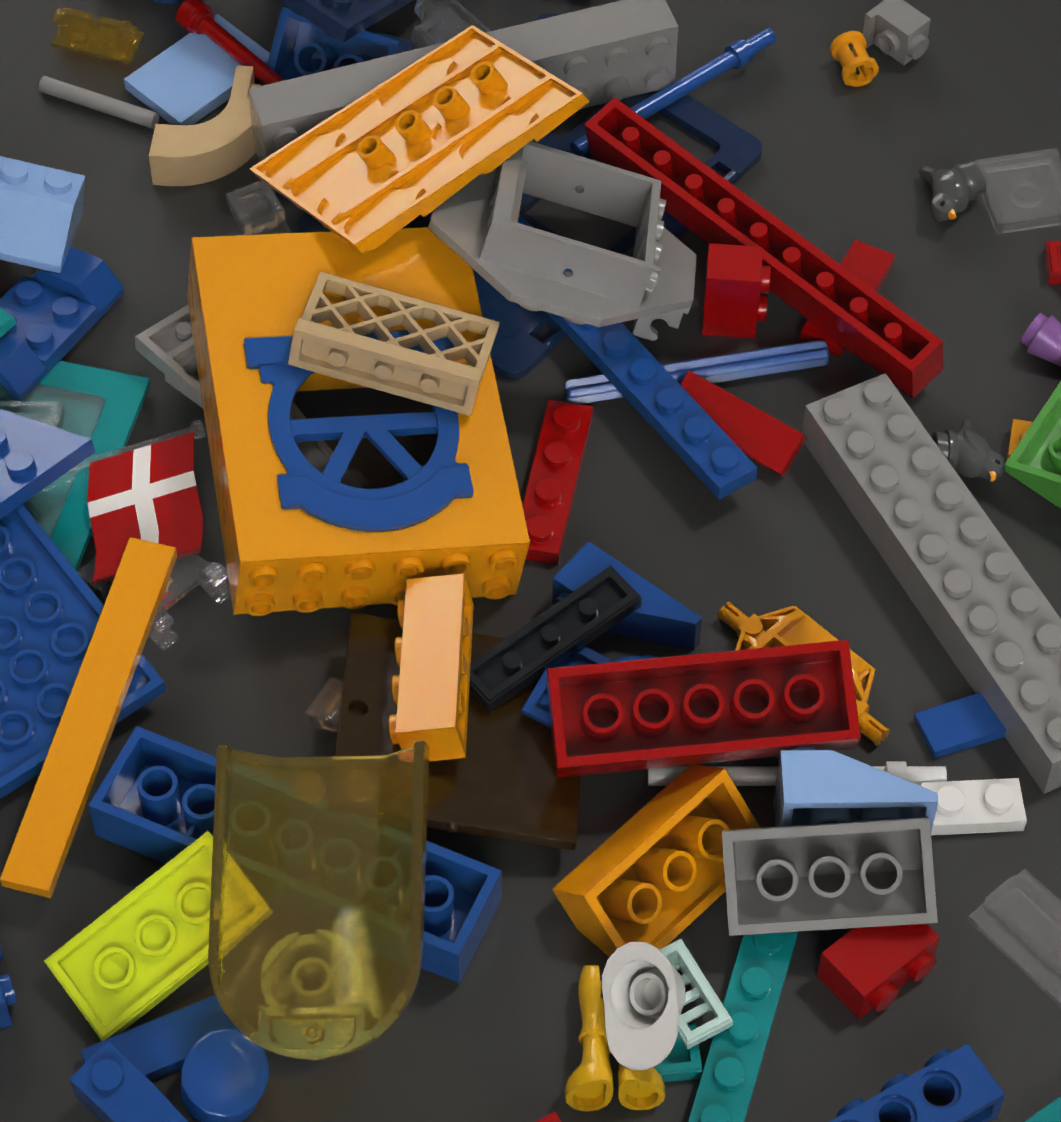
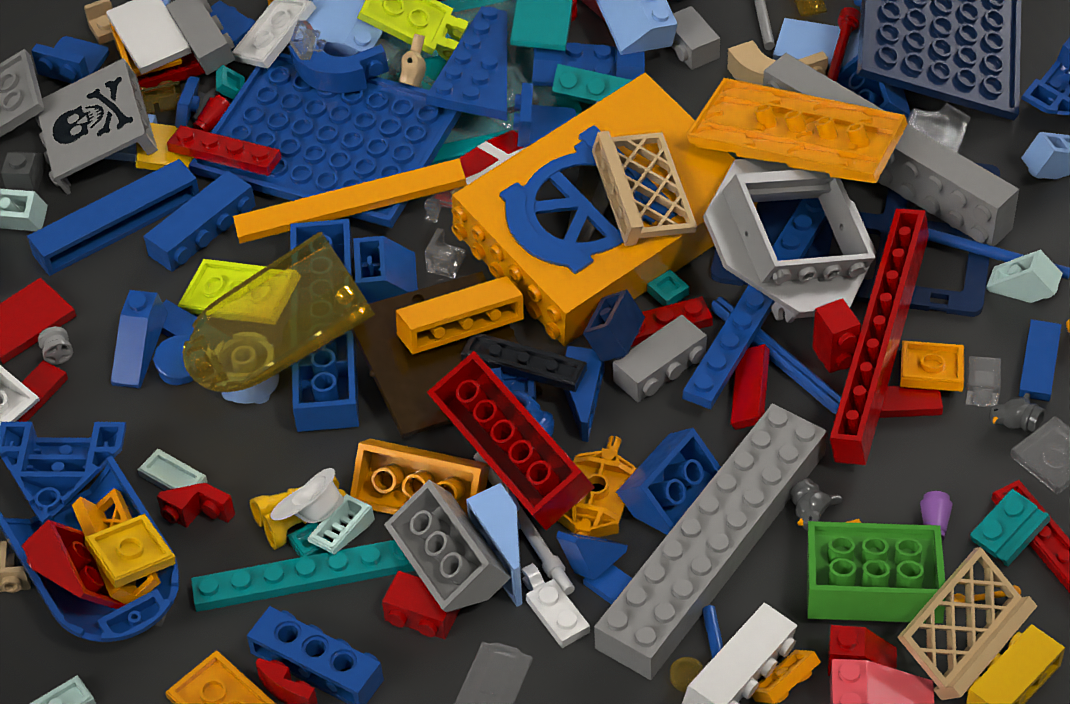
camera: 65 degrees right, 5 degrees down
(103, 183) = (695, 39): none -> light grey brick
(103, 329) = (584, 85): none -> teal brick
(119, 417) = (536, 120): none -> blue bracket
(247, 725) = (383, 268): none -> blue slope
(262, 654) = (443, 258): none -> clear panel
(520, 428) = (668, 288): none -> teal plate
(573, 503) = (614, 326): none -> dark blue brick
(629, 493) = (660, 358): none -> light grey brick
(750, 76) = (1026, 278): none -> light aqua slope
(834, 223) = (932, 366): none -> light orange tile
(846, 577) = (669, 480): none -> blue slope
(876, 131) = (1040, 360): none -> blue tile
(883, 196) = (983, 381): none -> clear brick
(911, 718) = (589, 554): none -> blue slope

